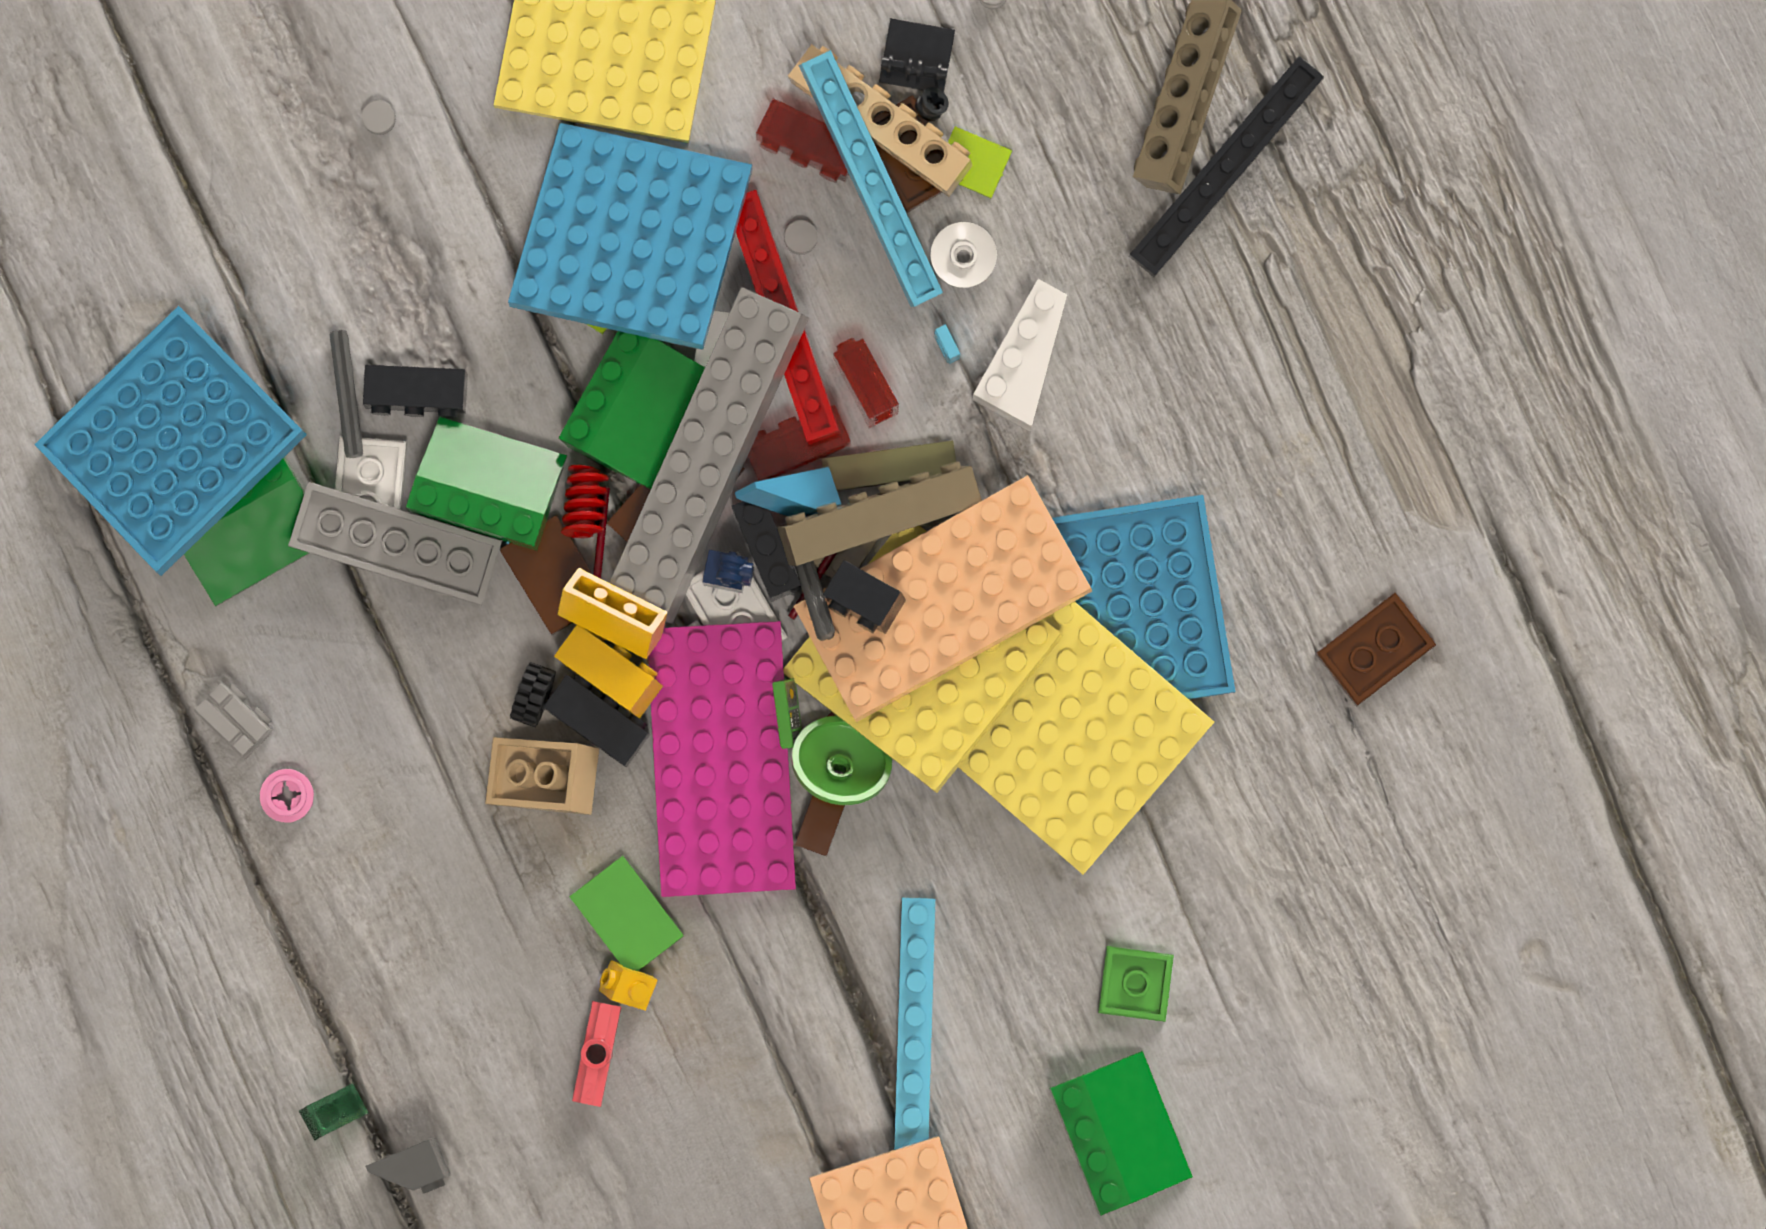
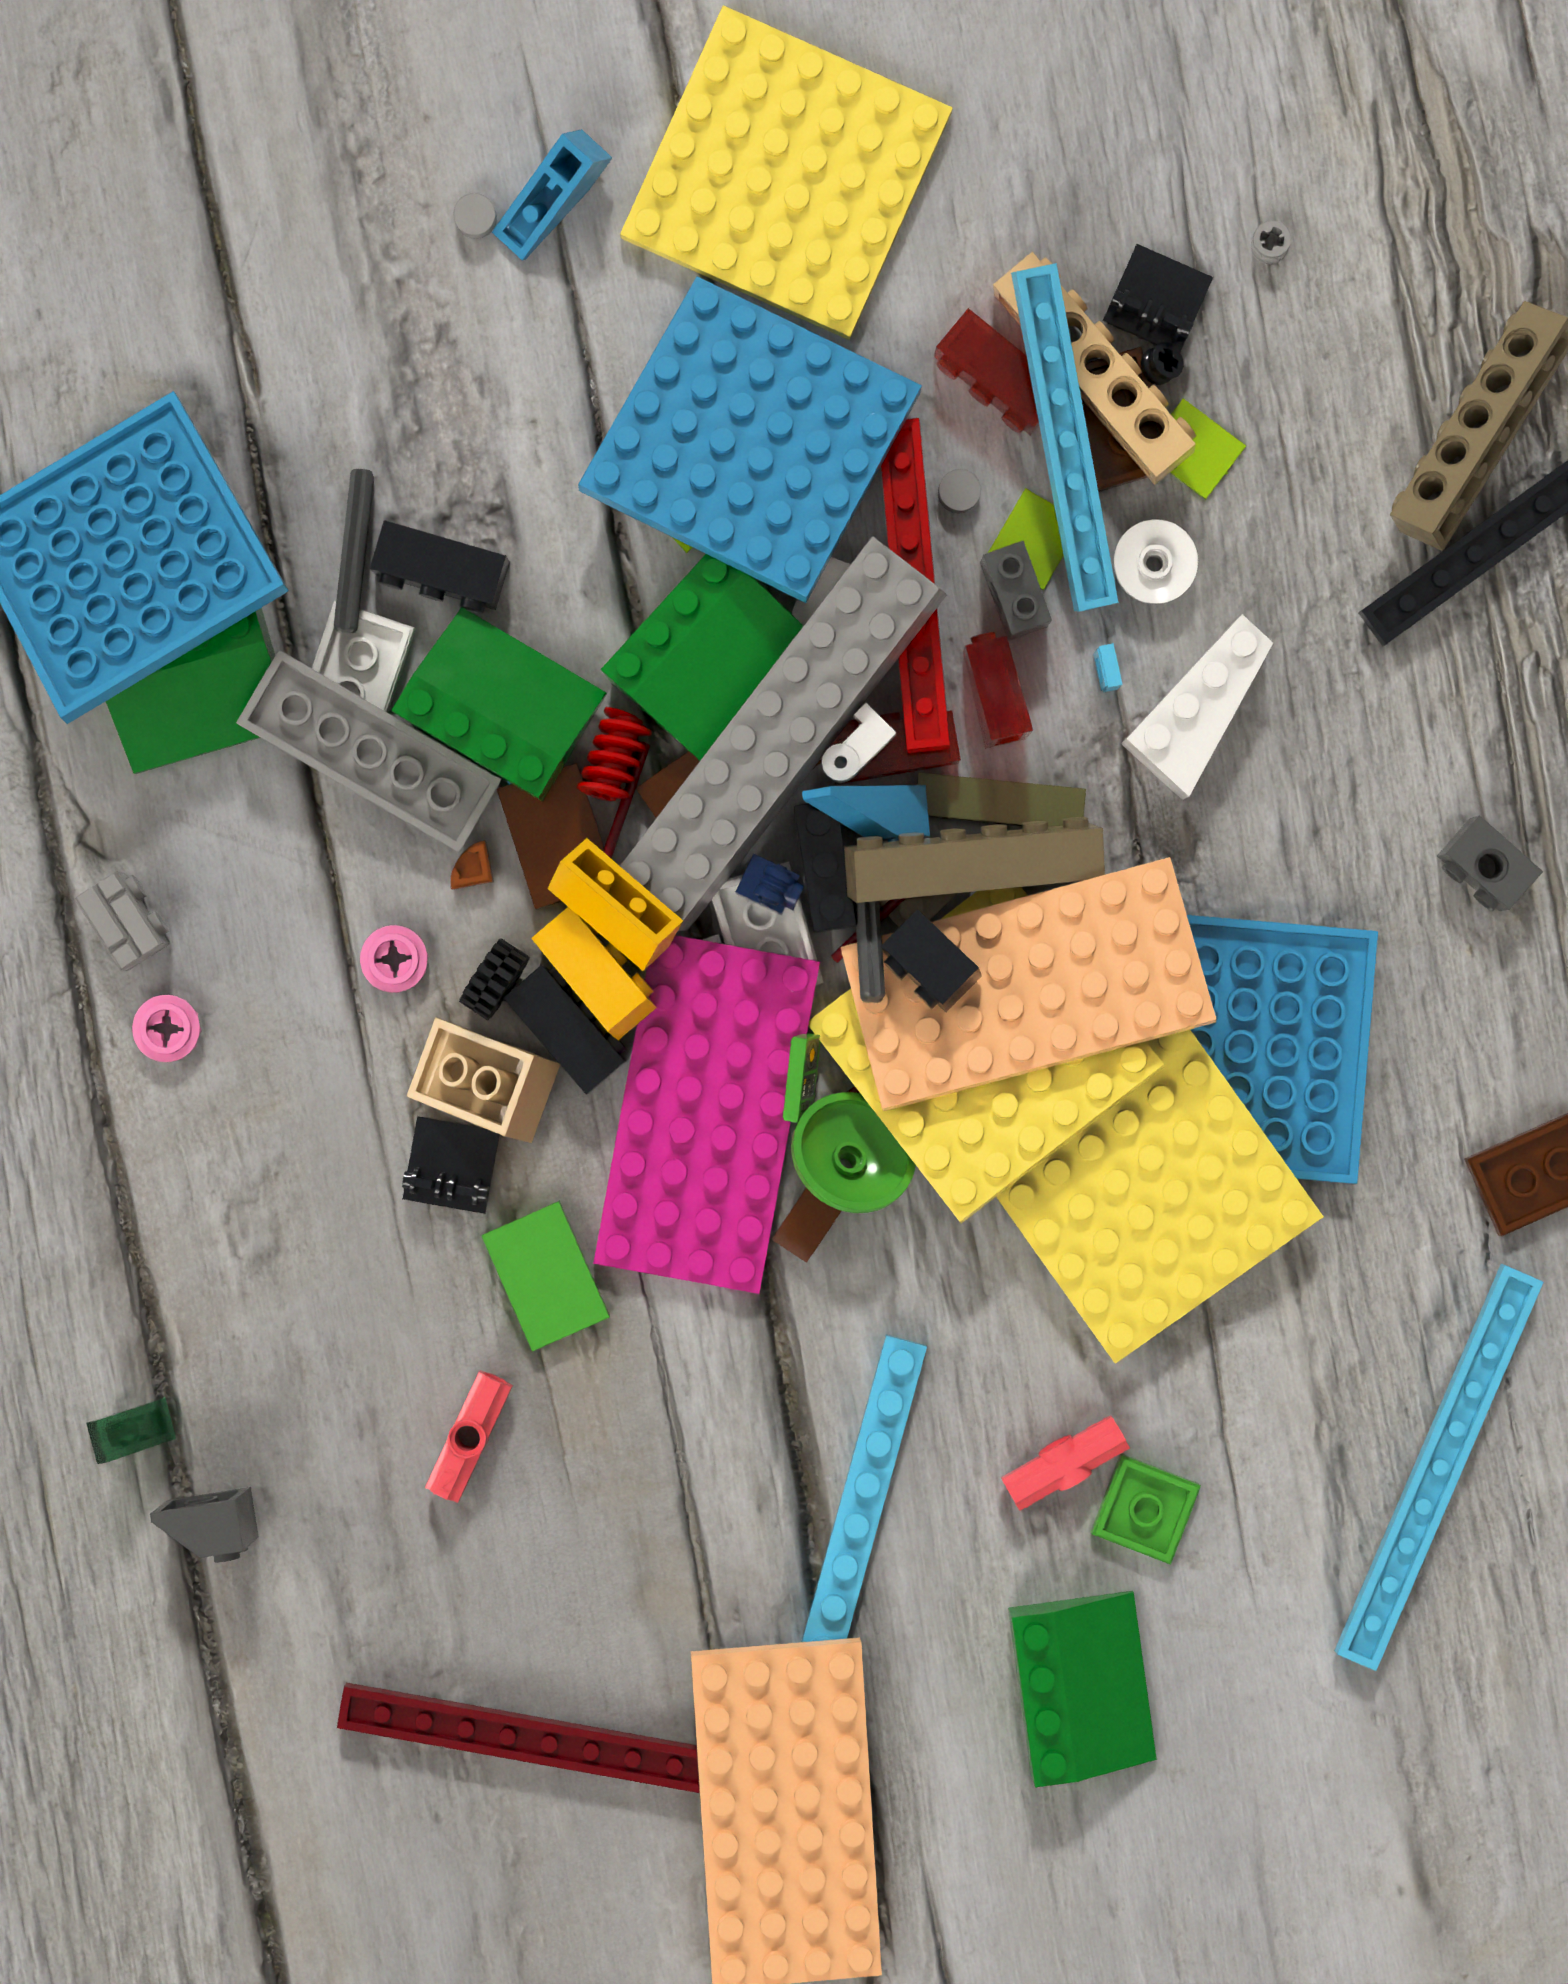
camera: 15 degrees right, 5 degrees up
(434, 86) = (552, 192): none -> dark azure slope
(436, 693) = (379, 945): none -> bright pink gear
(494, 615) = (472, 867): none -> dark orange tile
(532, 848) = (450, 1165): none -> black hinge
(627, 985) = (525, 1362): yellow bracket -> none
(765, 458) = (847, 759): none -> white leg
(862, 302) = (1015, 590): none -> dark grey brick
(863, 262) = (1035, 524): none -> lime window
(1064, 962) = (1065, 1462): none -> coral piece
(1295, 424) = (1512, 873): none -> dark grey brick
(1353, 895) = (1438, 1467): none -> medium azure plate

